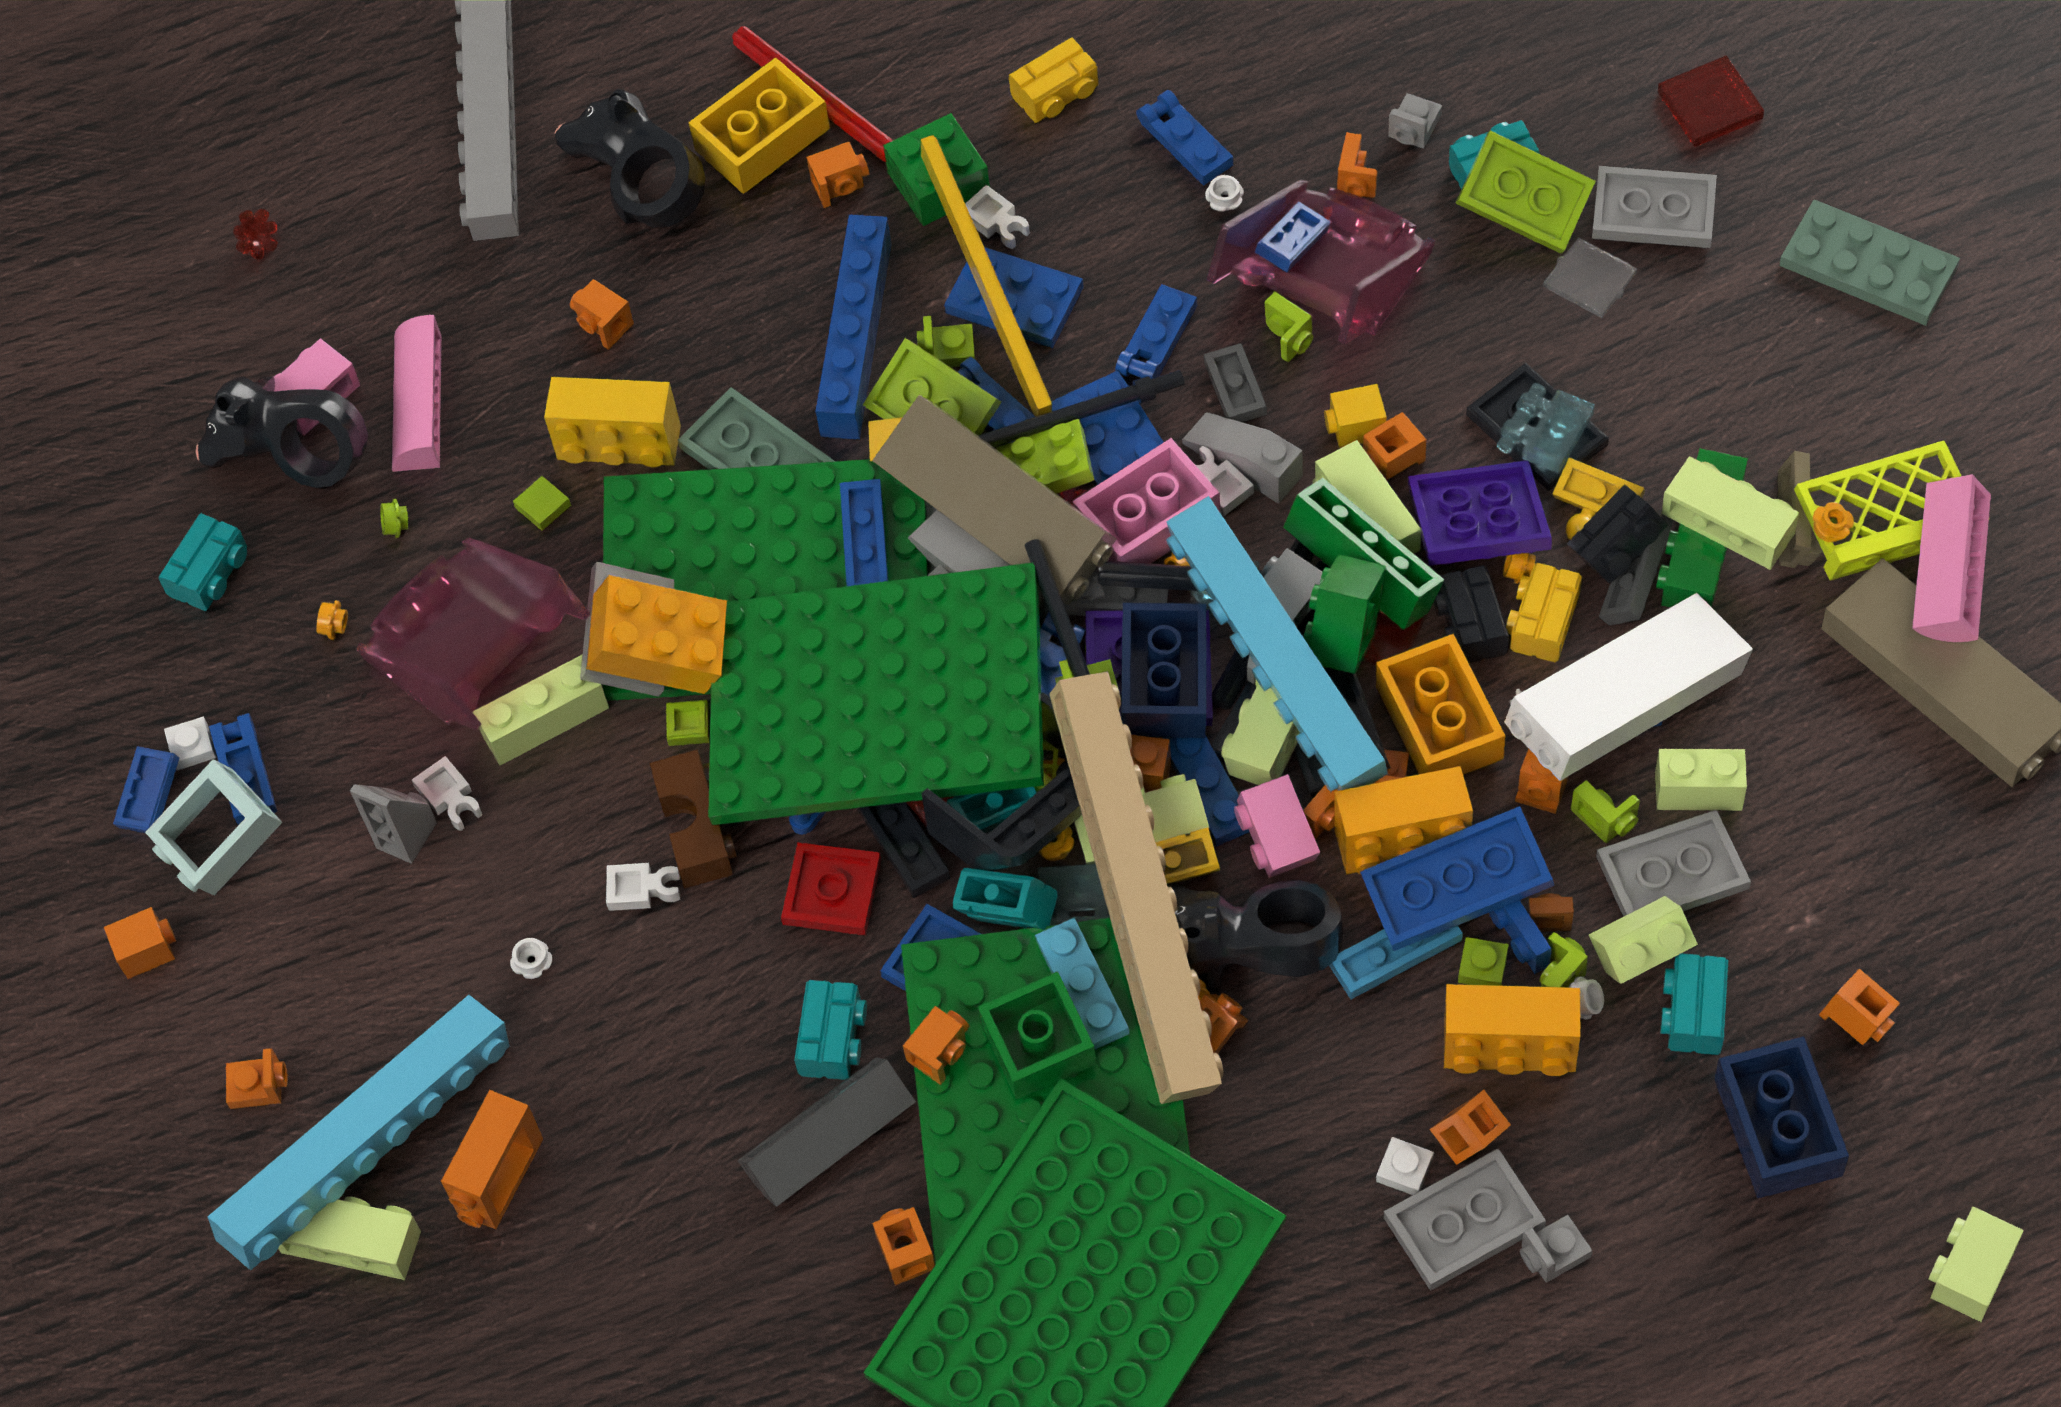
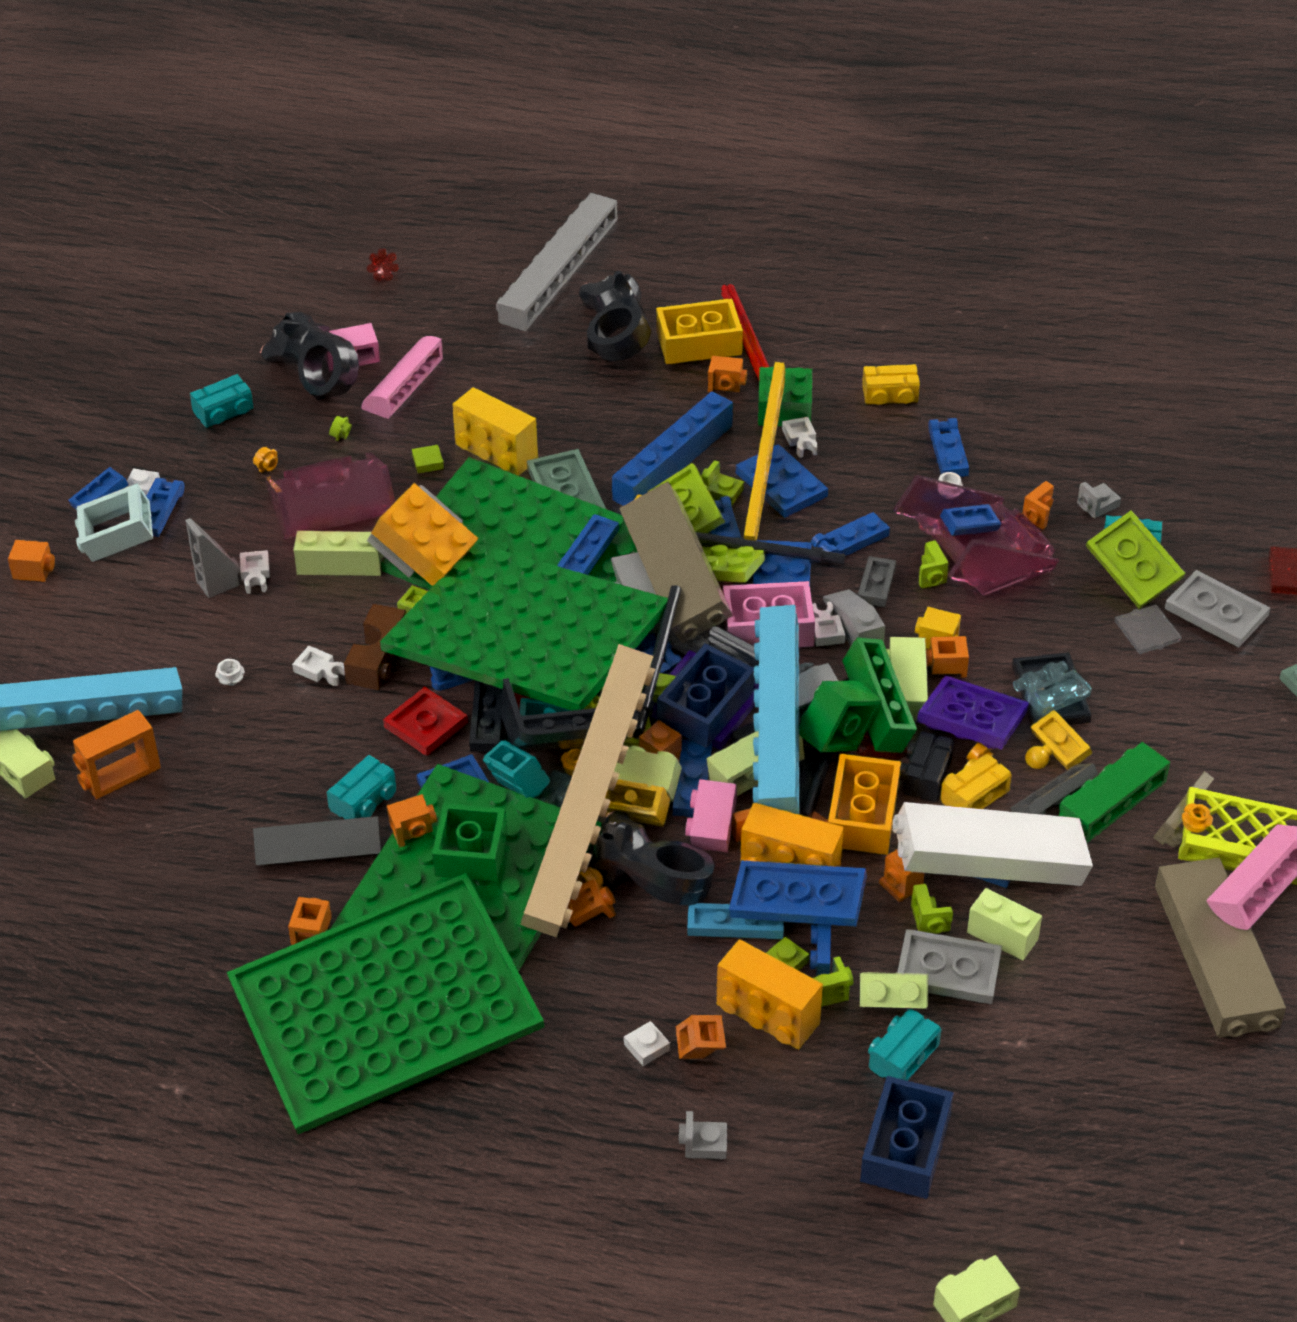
camera: 25 degrees right, 15 degrees down
(255, 1081) = (32, 658): orange bracket -> none
(602, 312) = (537, 383): orange brick -> none
(1070, 955) = (523, 835): medium azure plate -> none
(1464, 1219) = (658, 1089): light grey plate -> none
(1551, 912) = (849, 948): dark orange plate -> none
(1590, 996) = (834, 1007): white plate -> none
(1617, 534) = (1051, 762): black brick -> none
(1730, 512) = (1131, 780): yellowish green brick -> none
(1862, 1008) = (1011, 1105): orange brick -> none

